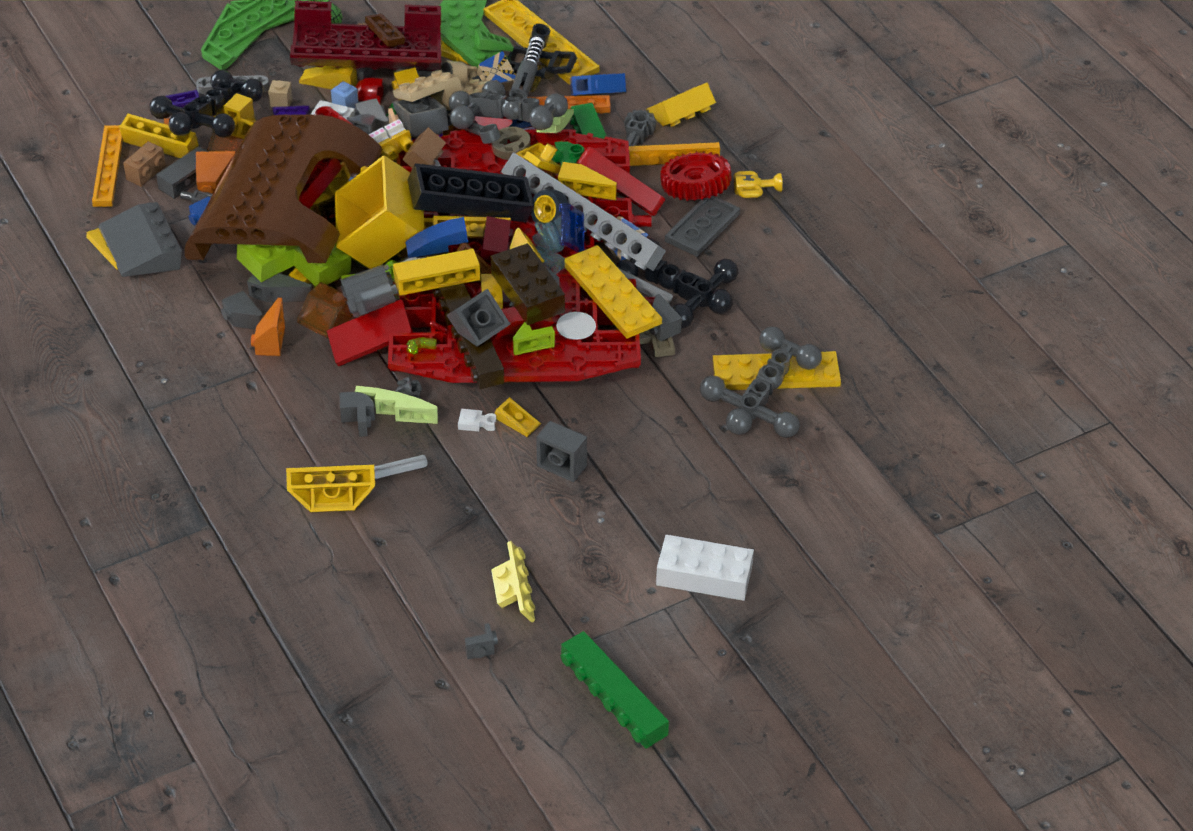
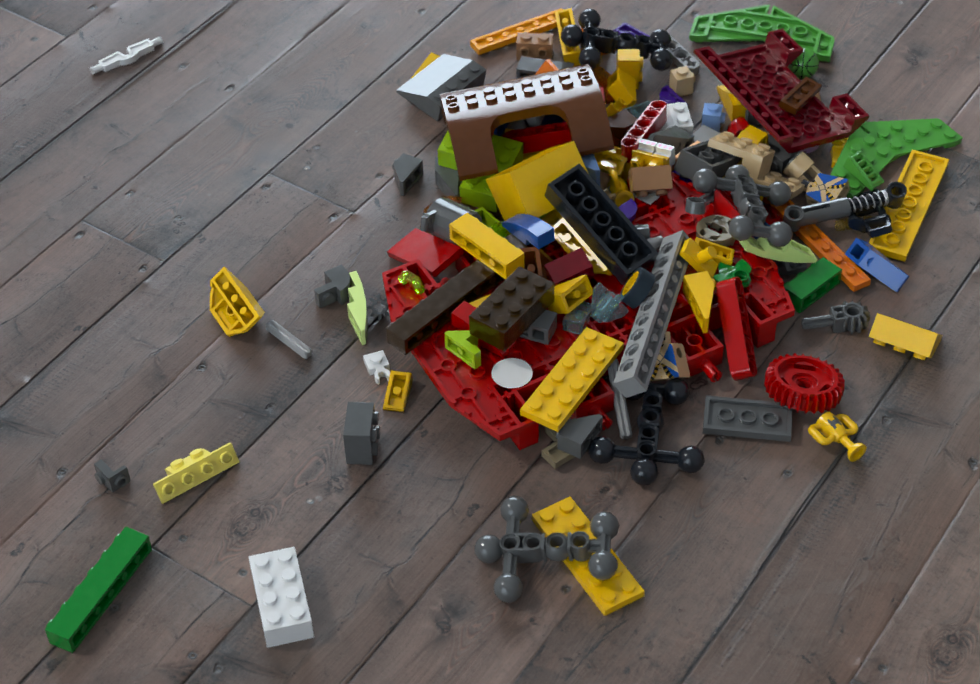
camera: 65 degrees right, 0 degrees up
(270, 331) = (392, 197): orange slope -> none
(479, 318) = (441, 294): dark grey slope -> none
(572, 227) = (621, 315): clear blue plate -> none
(662, 153) = (820, 348): light orange plate -> none

